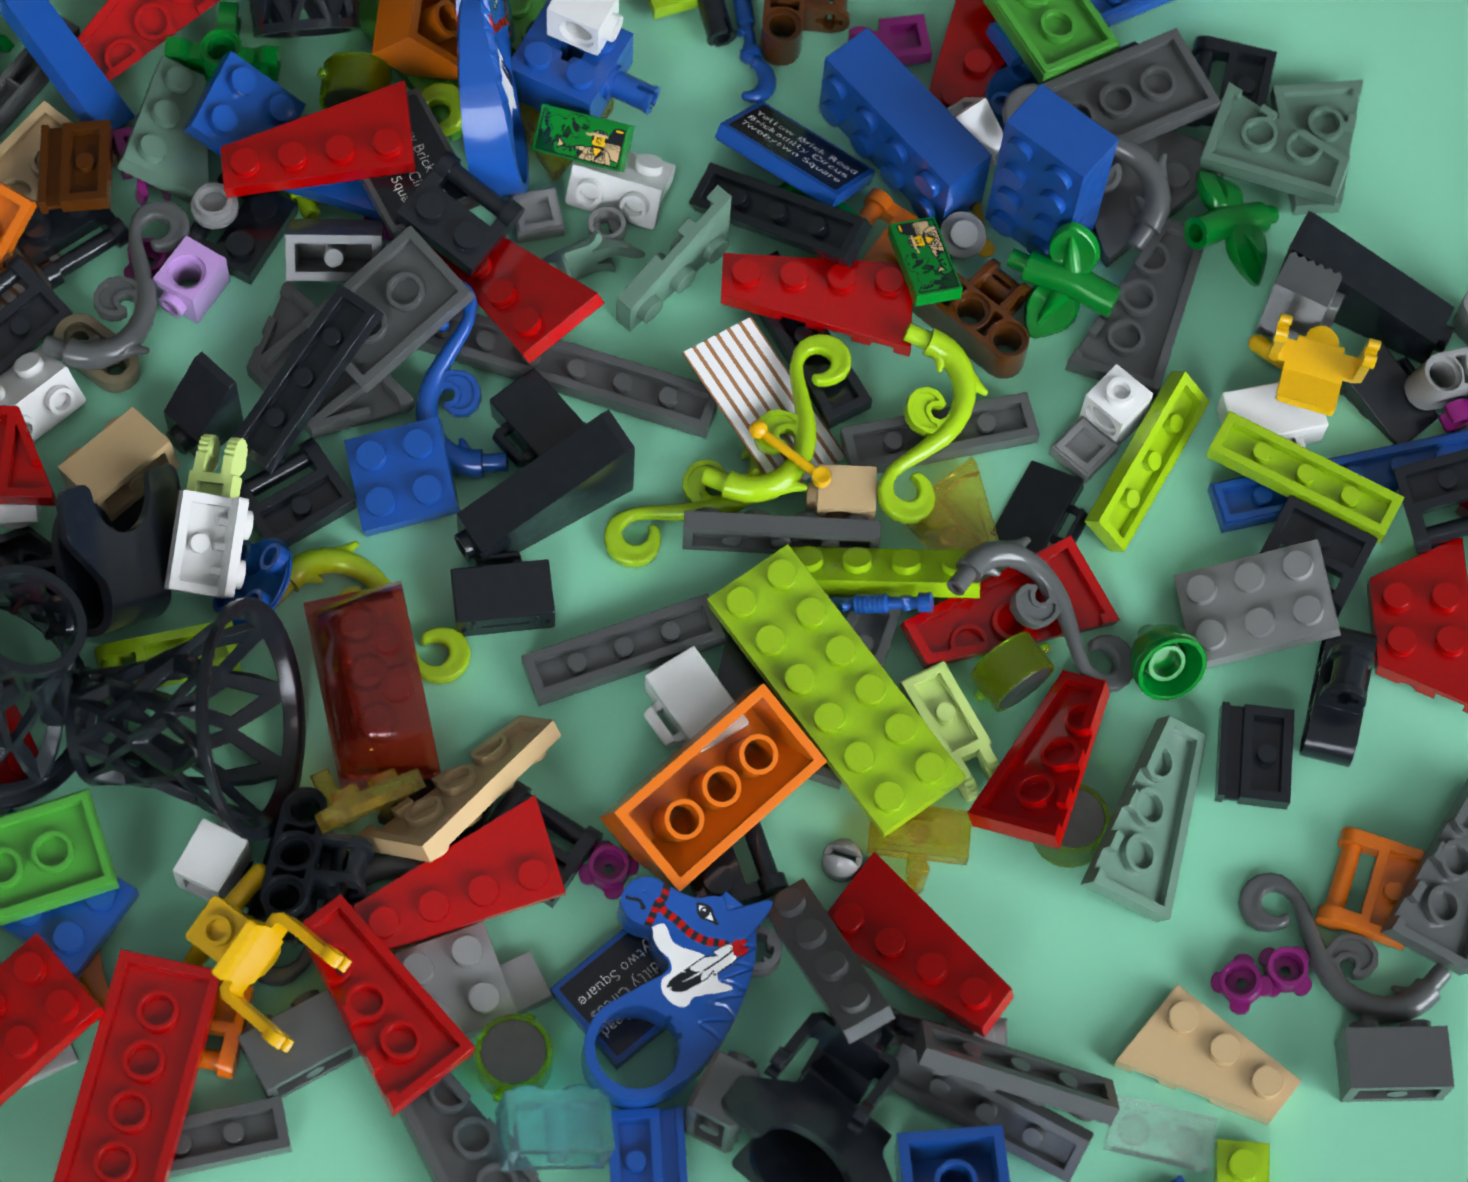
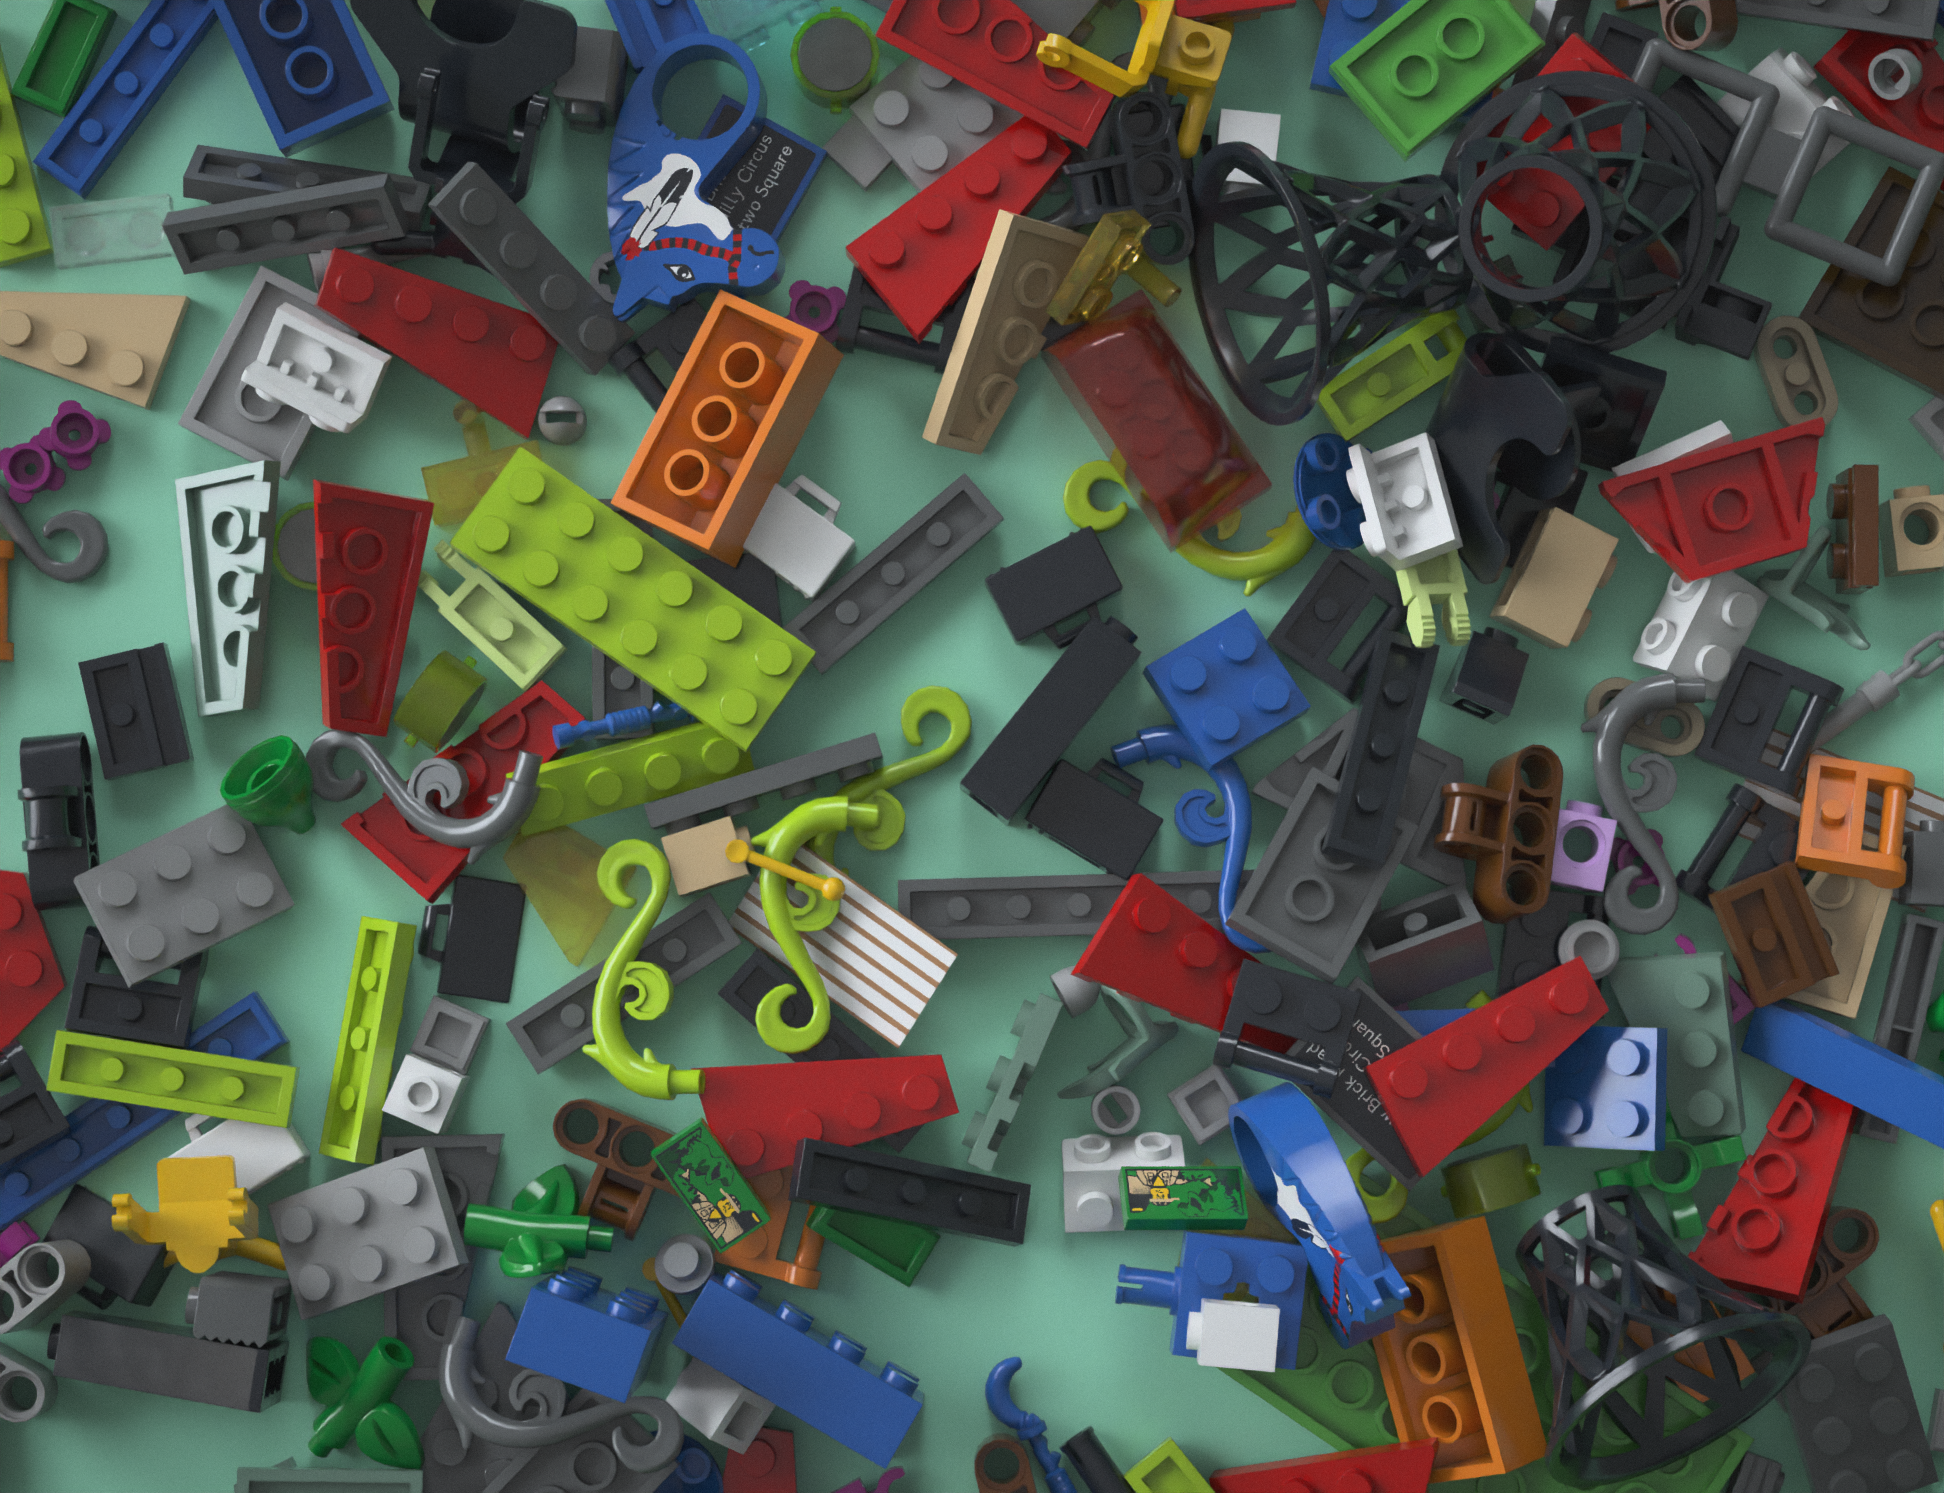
camera: 165 degrees right, 20 degrees up
(236, 298) = (1480, 829): none -> reddish brown piece
(603, 320) = (1074, 992): none -> light grey hinge
(795, 154) = (922, 1291): tile -> none
(1029, 943) = (317, 370): none -> white bracket
(1068, 972) = (231, 410): none -> light grey plate
(1190, 326) = (368, 1233): none -> light grey plate

